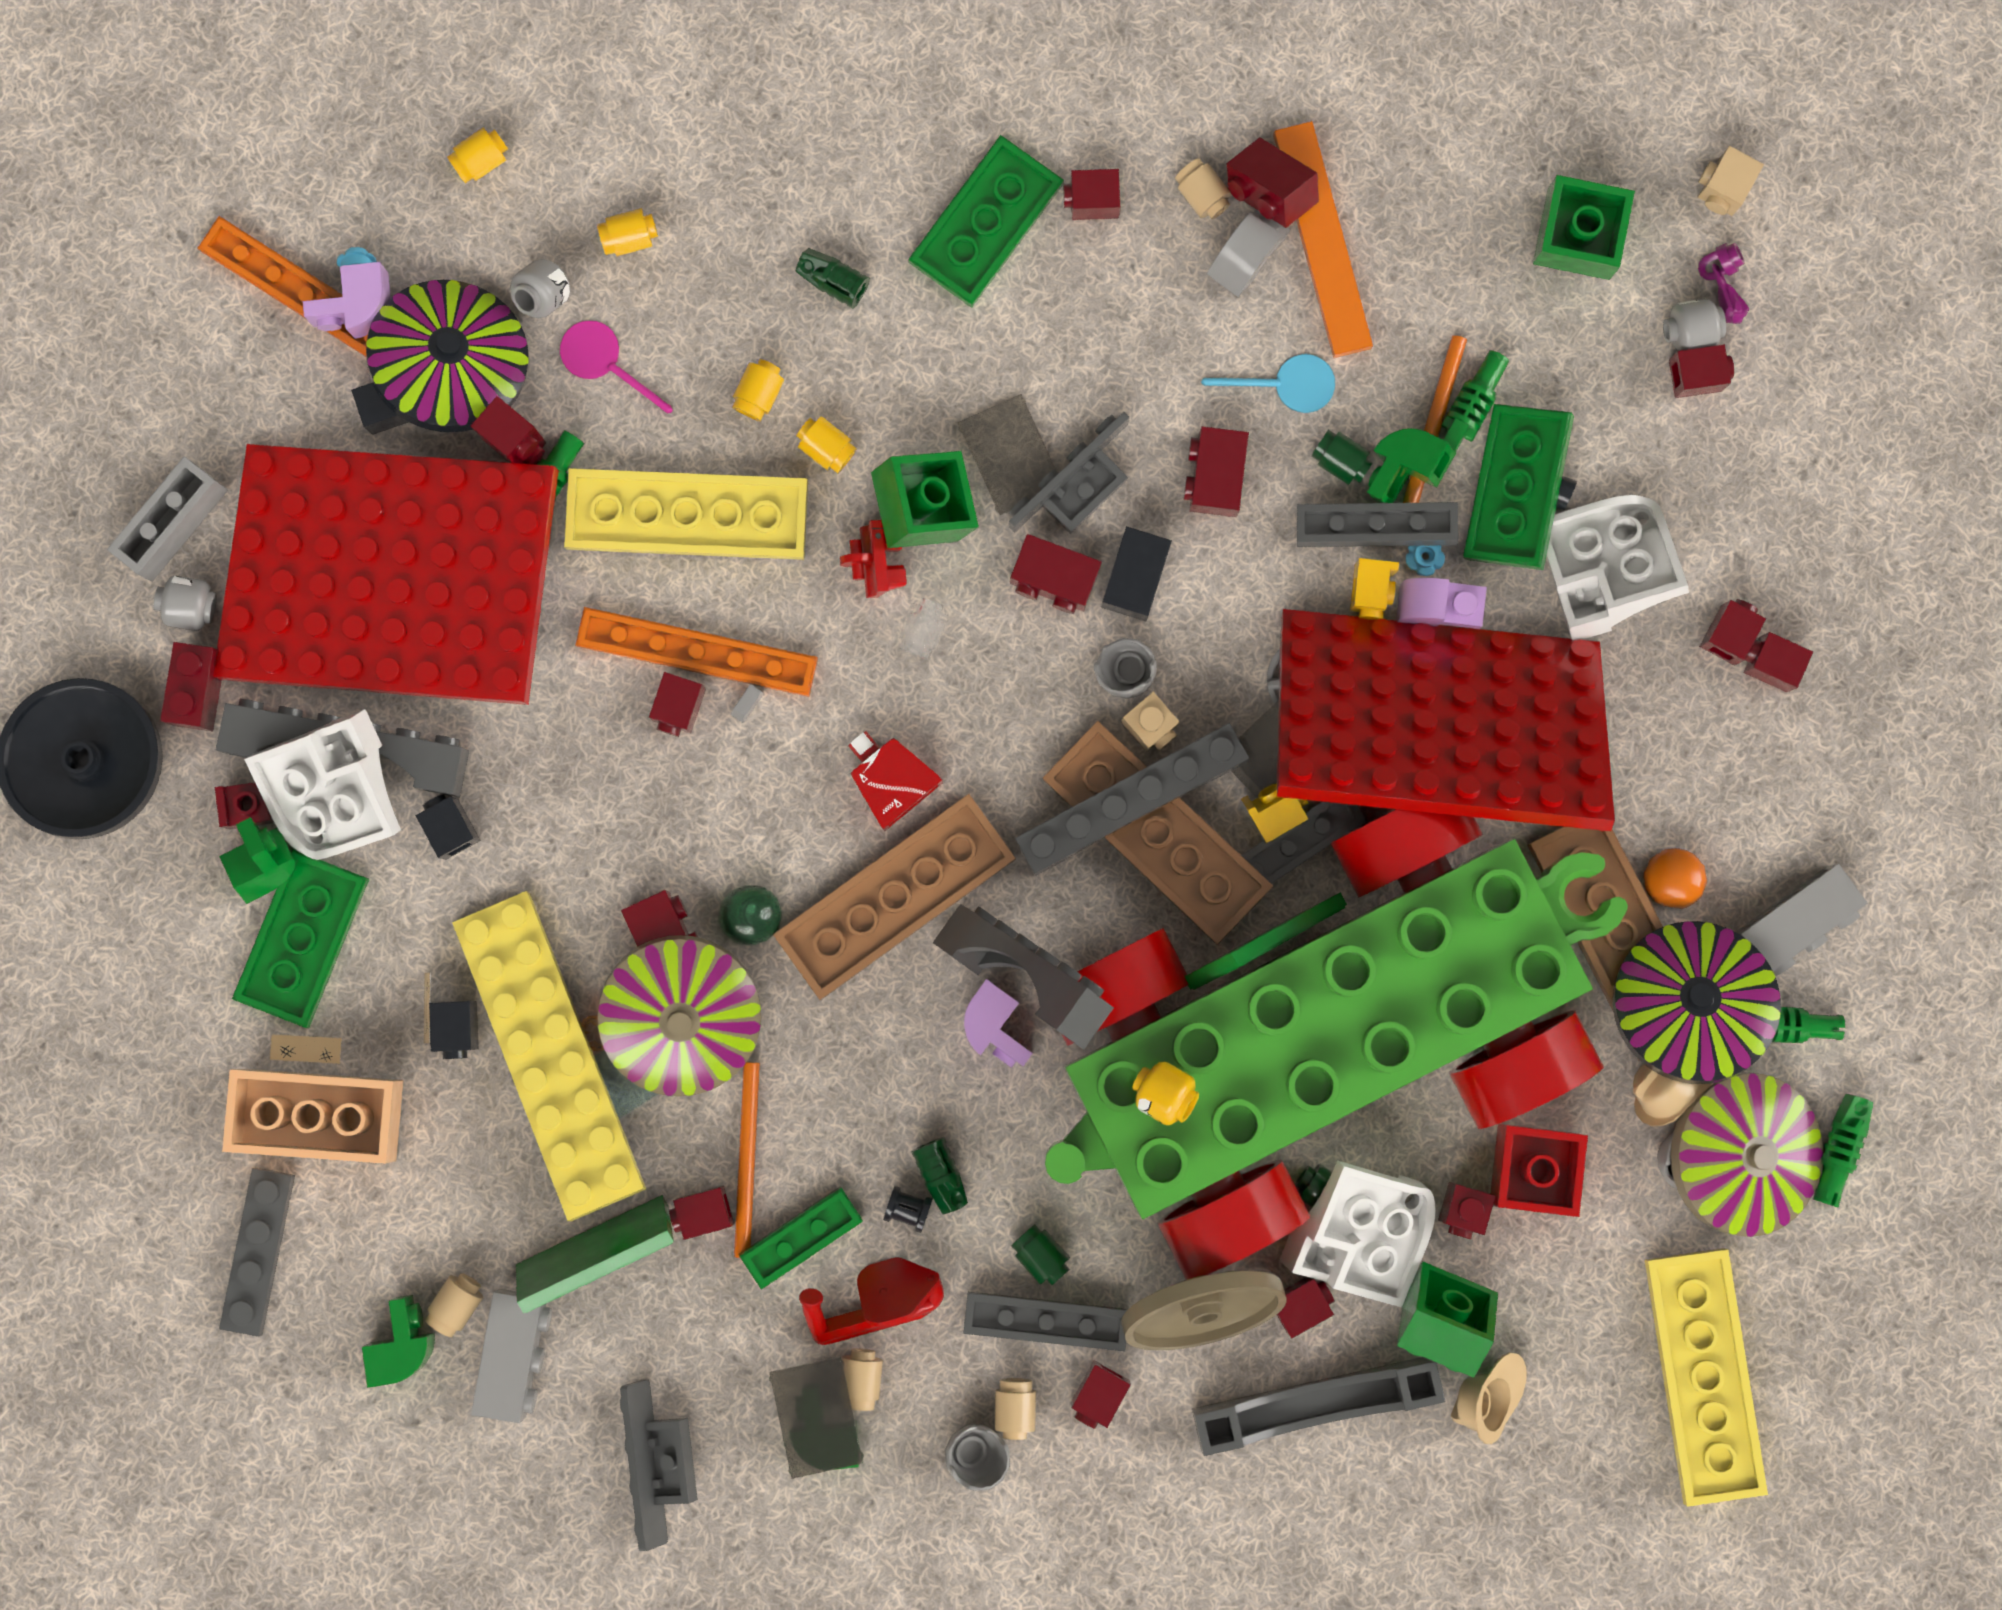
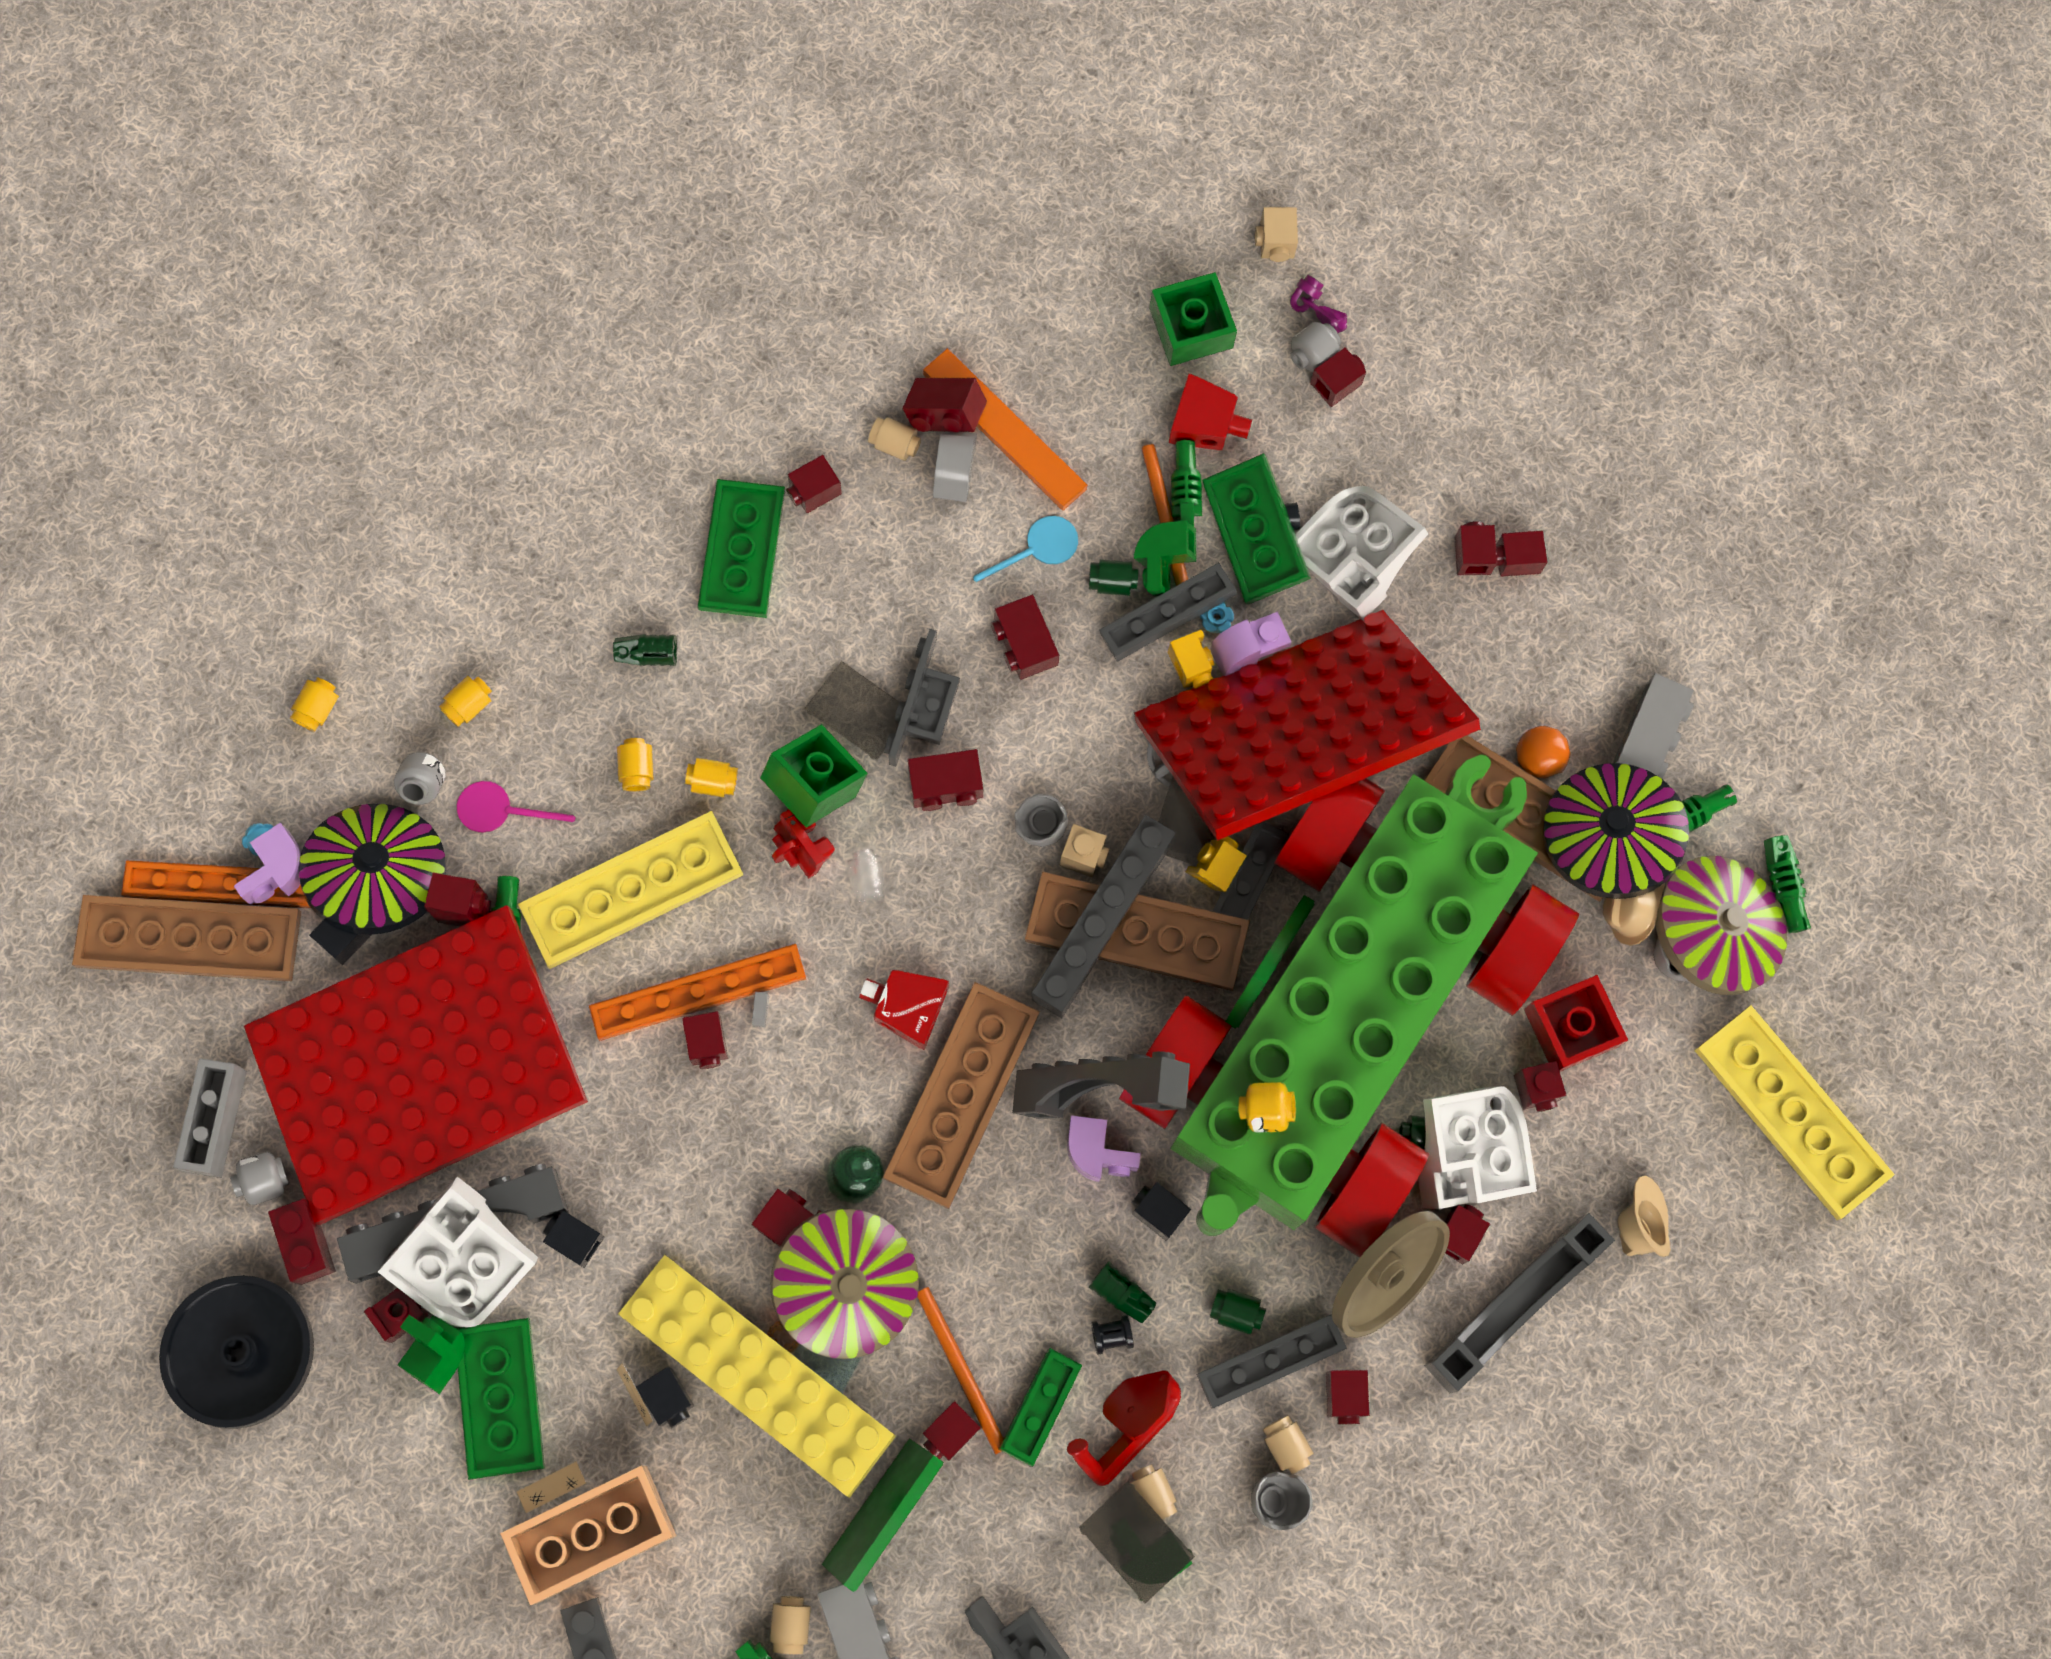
camera: 35 degrees left, 10 degrees down
(237, 326) = (187, 938): none -> medium nougat plate
(1021, 1117) = (1159, 1210): none -> black brick
(1136, 574) = (1008, 746): black panel -> none
(1448, 1320) = (1578, 1177): green brick -> none
(1538, 339) = (1207, 415): none -> red torso

